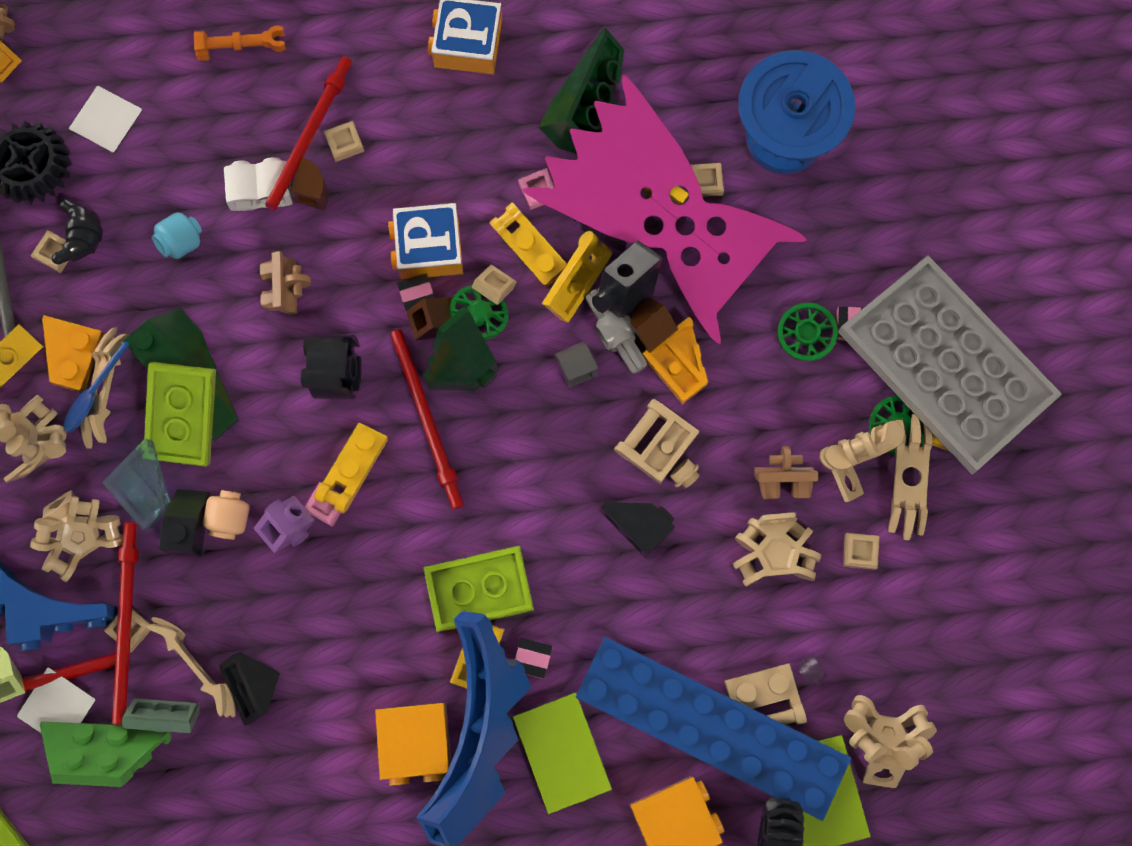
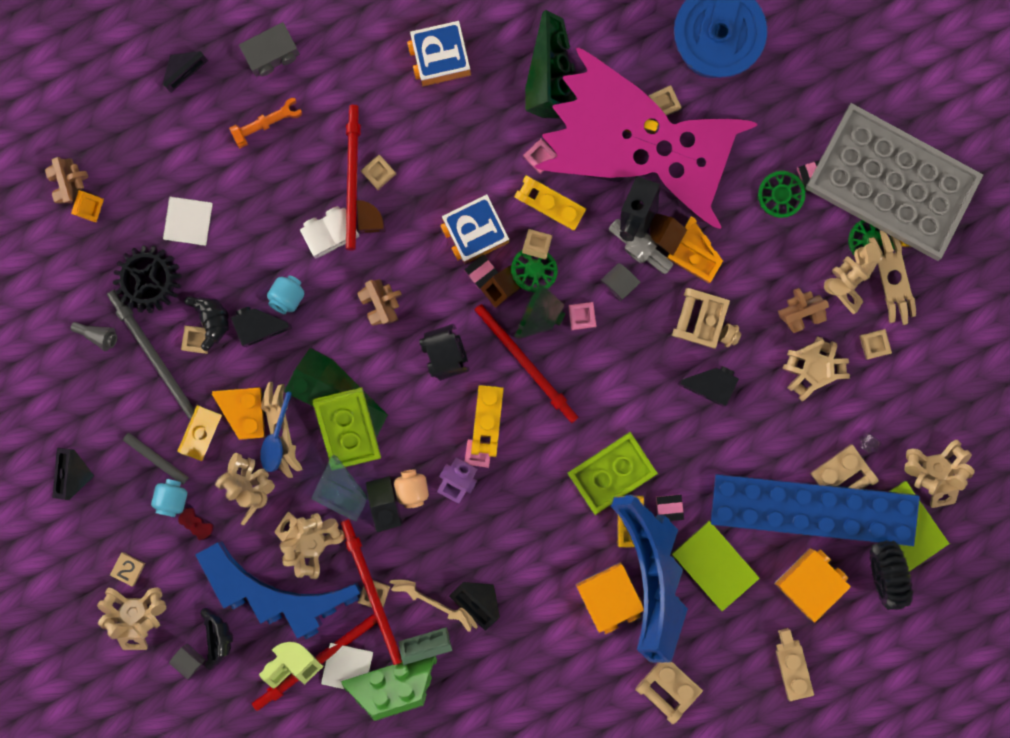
camera: 20 degrees left, 10 degrees up
(127, 260) = (257, 326): none -> black slope
(515, 387) = (582, 316): none -> bright pink tile
(577, 277) = (597, 215): yellow plate -> none

